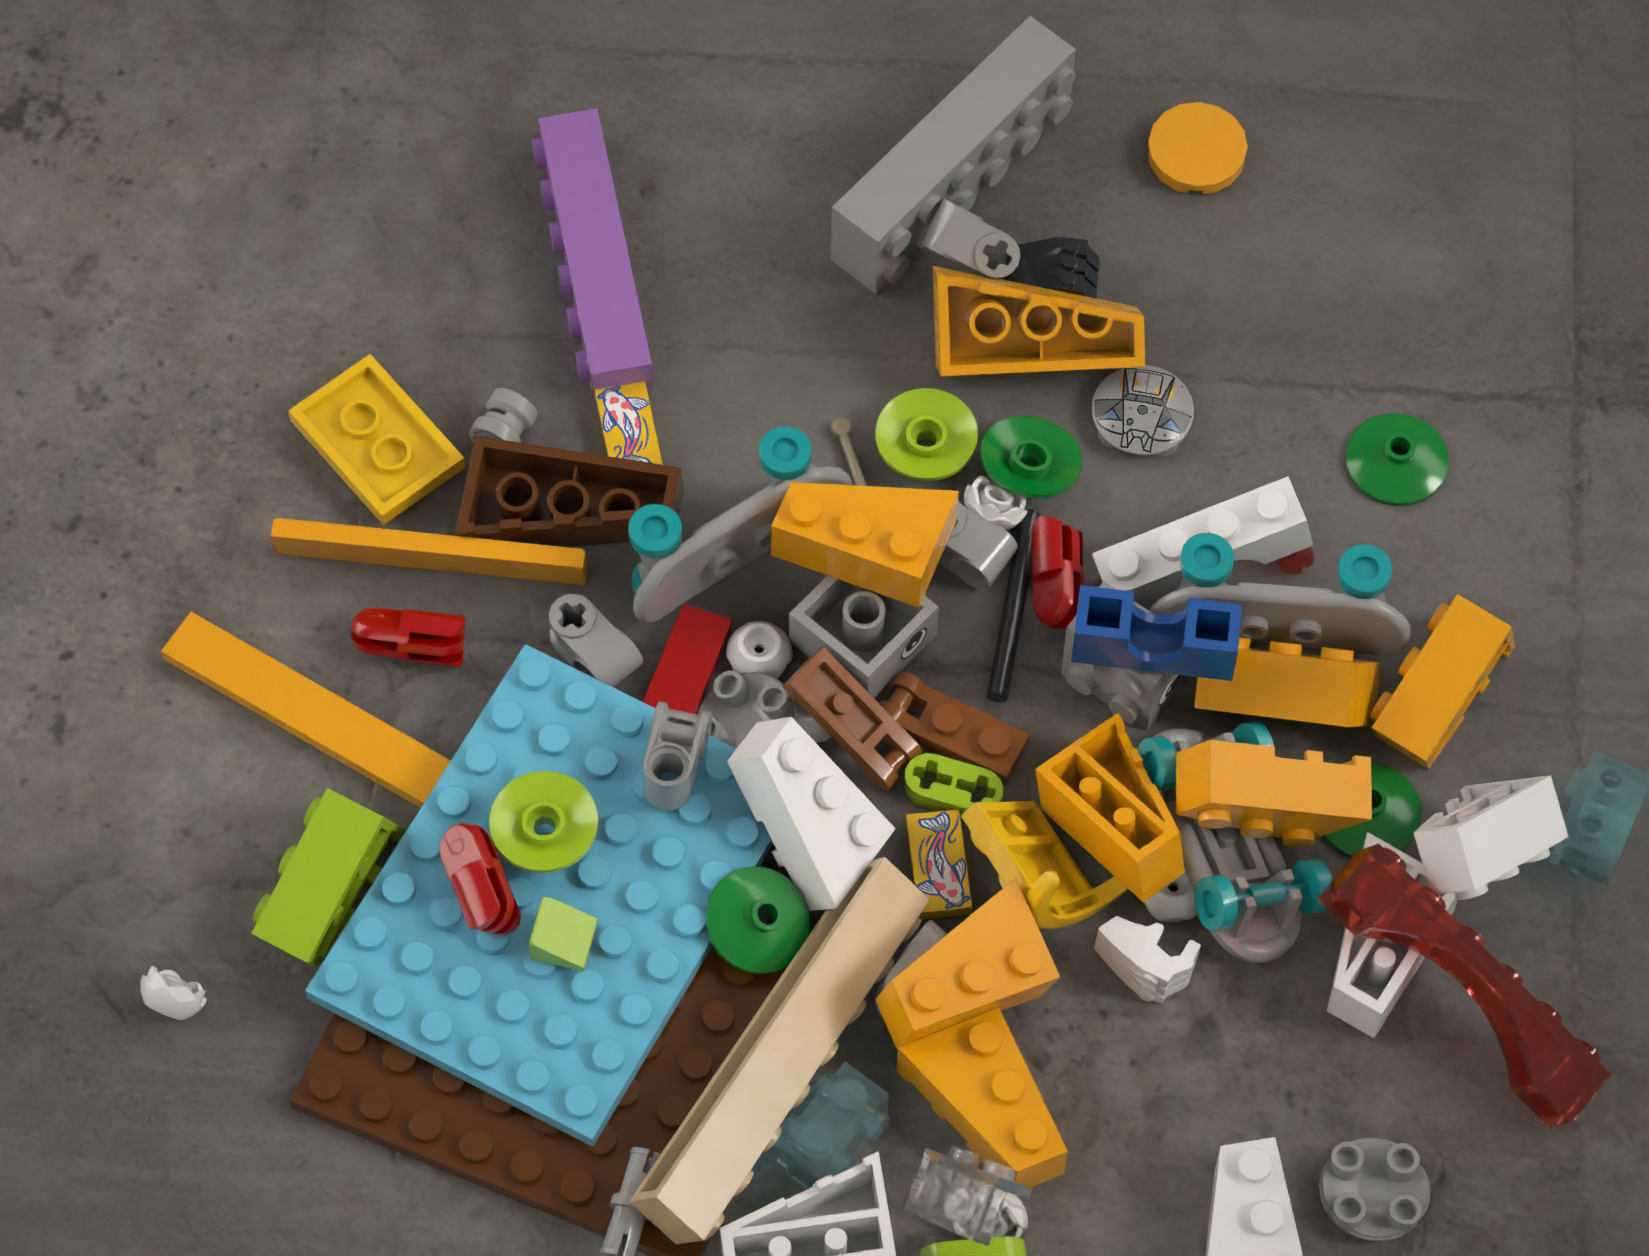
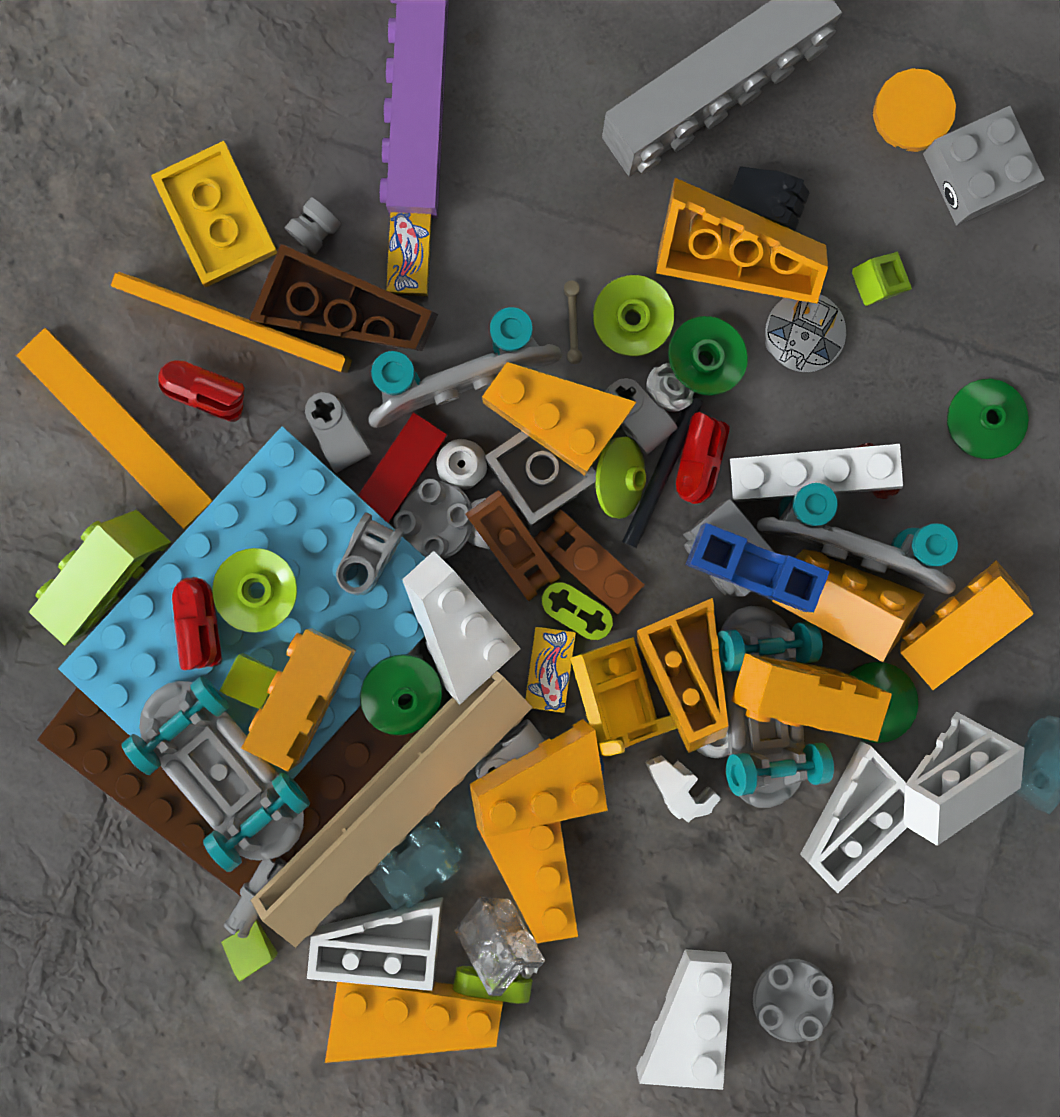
camera: 20 degrees right, 25 degrees up
(553, 1048) = (236, 792): none -> light grey piece
(633, 931) = (298, 699): none -> light orange wedge
(964, 235) = (706, 159): light grey piece -> none
(964, 611) = (620, 477): none -> lime dish
(1215, 334) = (881, 278): none -> lime slope
(1296, 184) = (983, 165): none -> light grey brick
(1542, 1058) = (868, 832): clear red arch -> none

